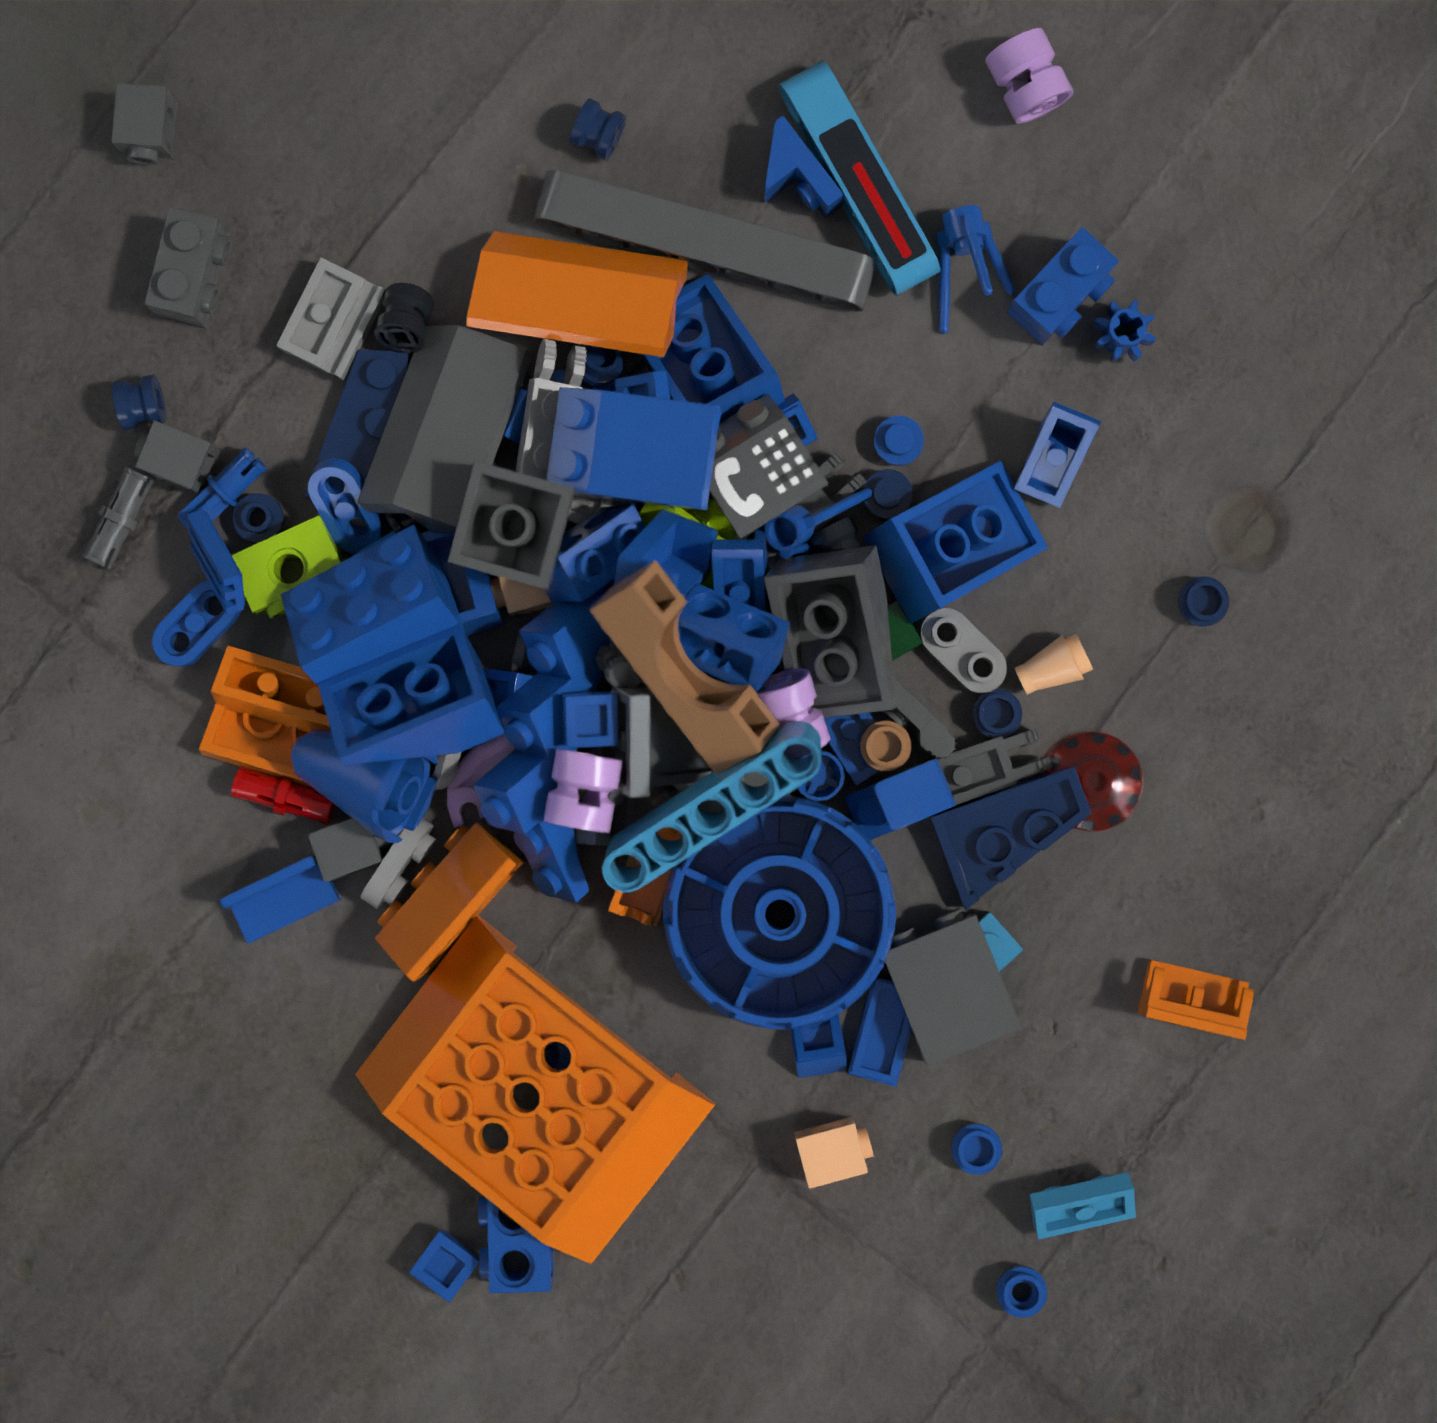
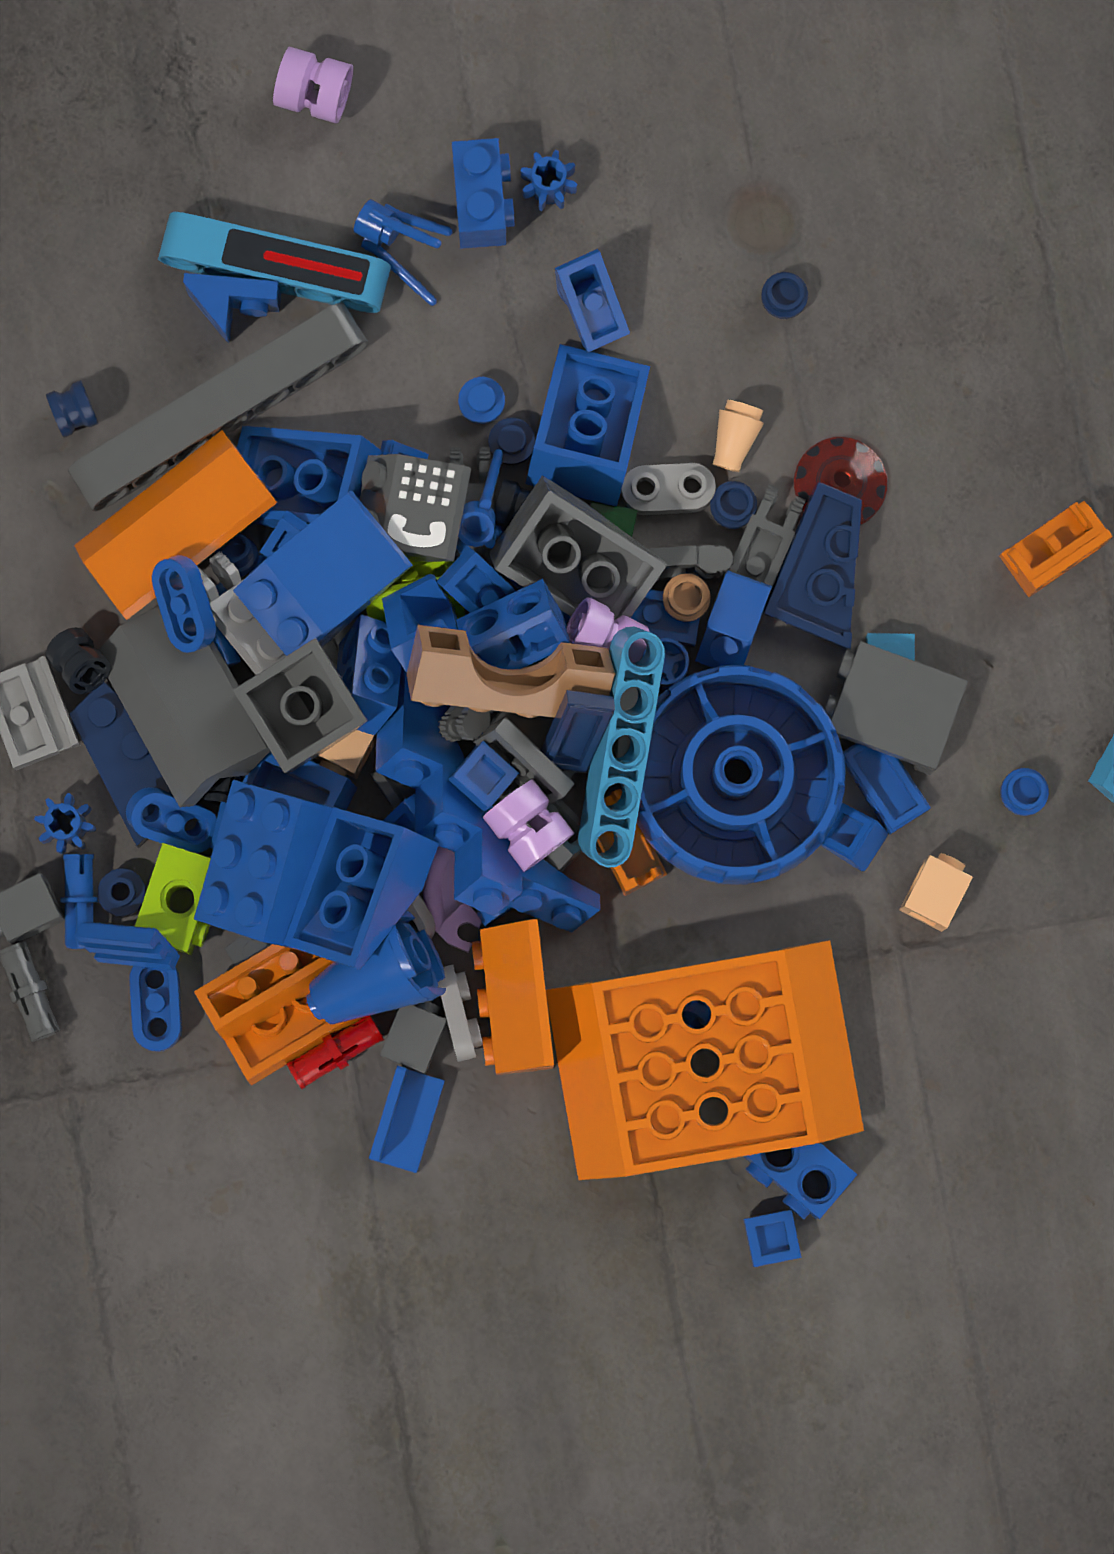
camera: 55 degrees left, 5 degrees down
(264, 414) = (52, 823): none -> blue gear
(515, 358) = (183, 603): none -> blue plate
(692, 761) = (578, 730): none -> dark blue tile

